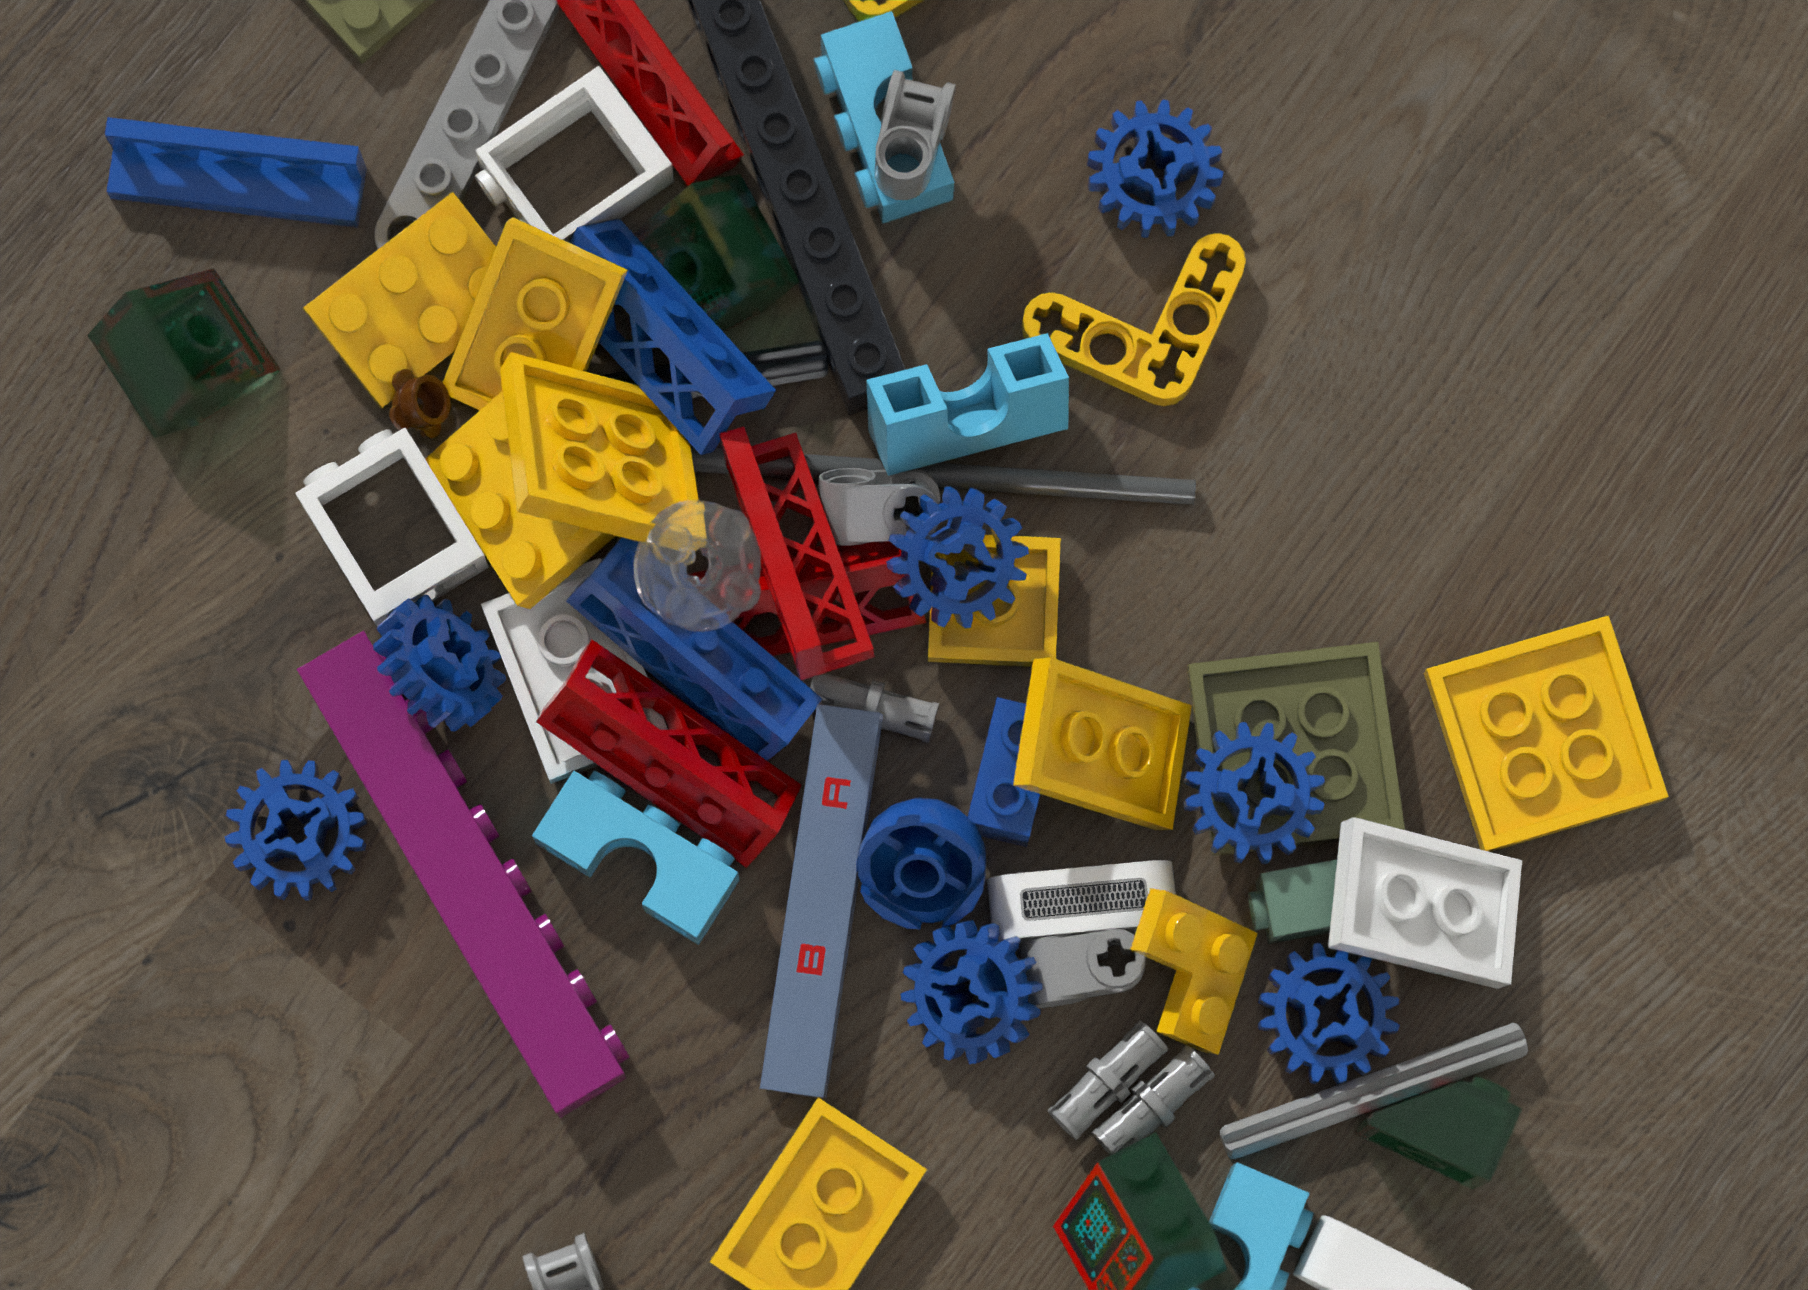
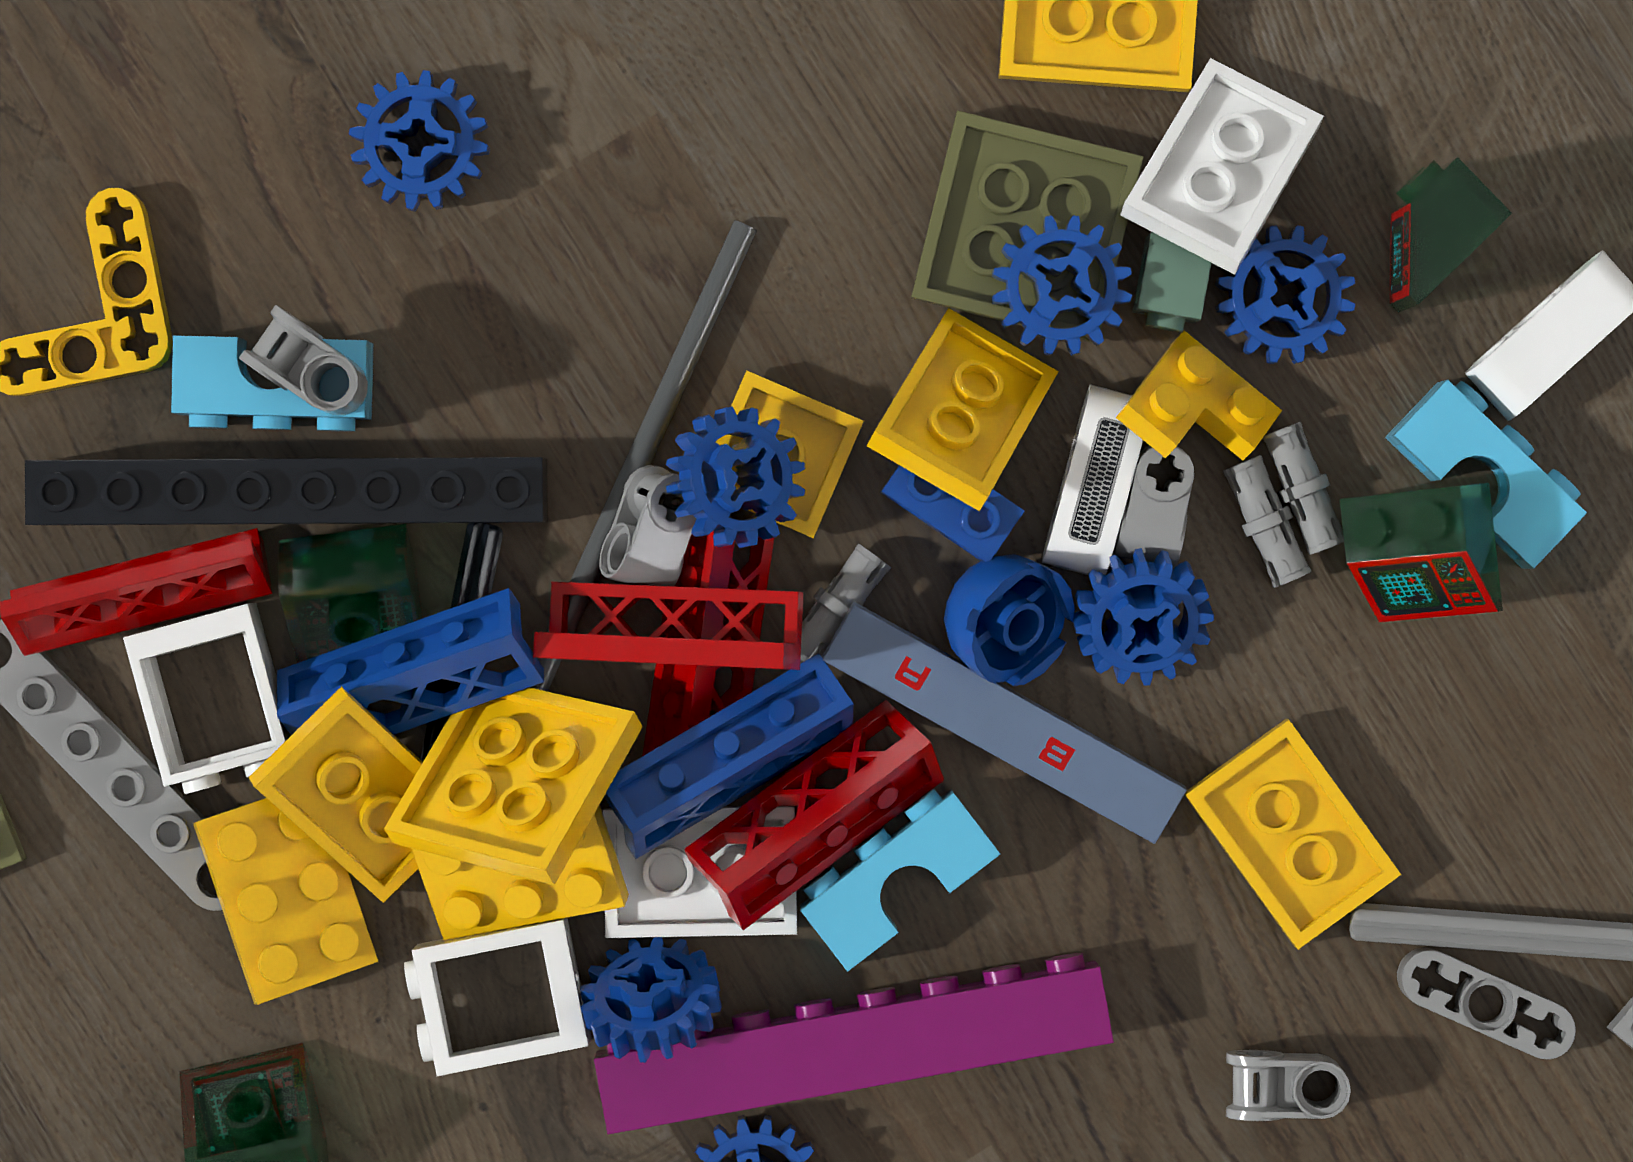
camera: 65 degrees left, 10 degrees up
(235, 172) = (96, 1020): blue fence -> none
(419, 403) = (393, 914): reddish brown plate -> none
(732, 573) = (689, 709): clear plate -> none
(1013, 401) = (598, 365): medium azure arch -> none
(1141, 347) = (587, 222): yellow beam -> none
(1373, 1091) = (1369, 269): light grey axle -> none

